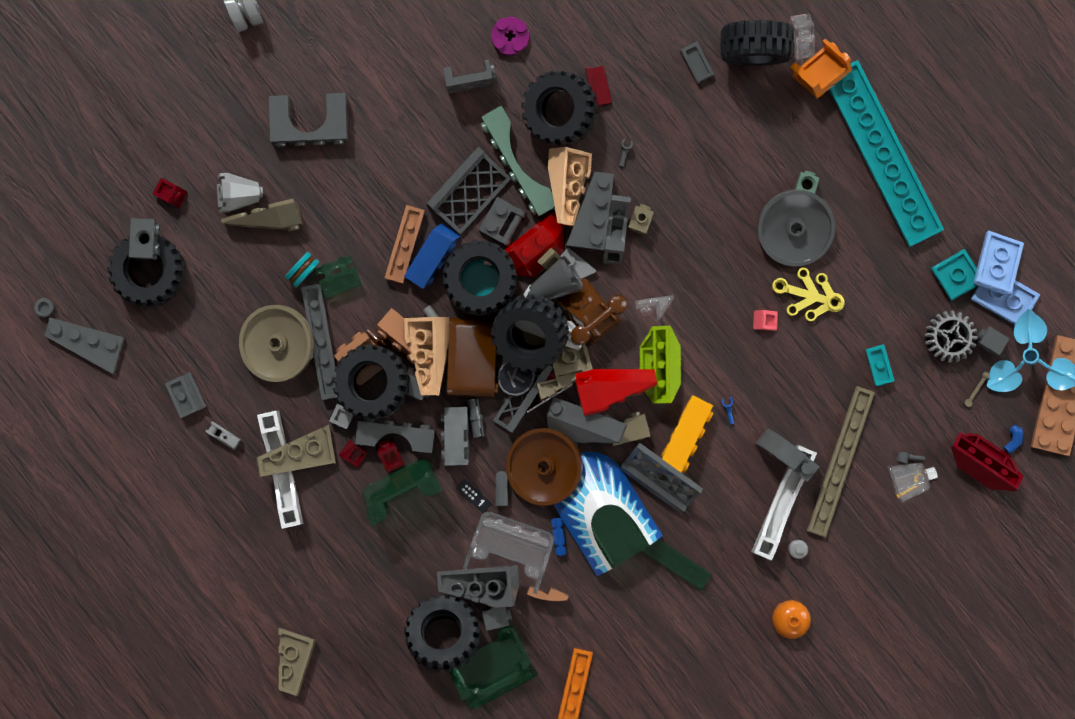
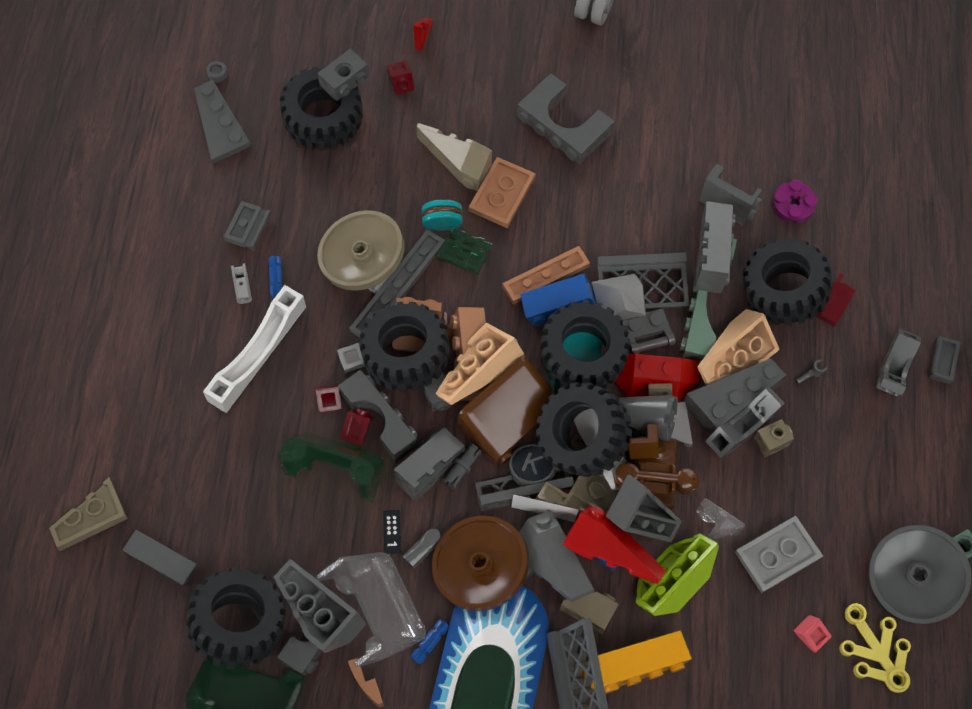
camera: 40 degrees right, 20 degrees down
(148, 143) = (421, 32): none -> red tile
(236, 192) = (451, 116): light grey cone -> none
(239, 410) = (275, 275): none -> blue axle
(302, 453) = (282, 349): dark tan wing -> none
(320, 213) = (502, 192): none -> nougat plate
(358, 642) = (160, 558): none -> dark grey tile
(465, 217) = (622, 295): none -> light grey slope
(494, 128) = (715, 247): none -> dark grey wedge
(574, 306) = (645, 446): none -> reddish brown panel
(611, 350) = (642, 513): none -> dark grey wedge
(672, 97) = (897, 363): none -> dark grey arch
(706, 291) = (778, 554): none -> light grey plate
(728, 410) = (701, 682): blue hand -> none

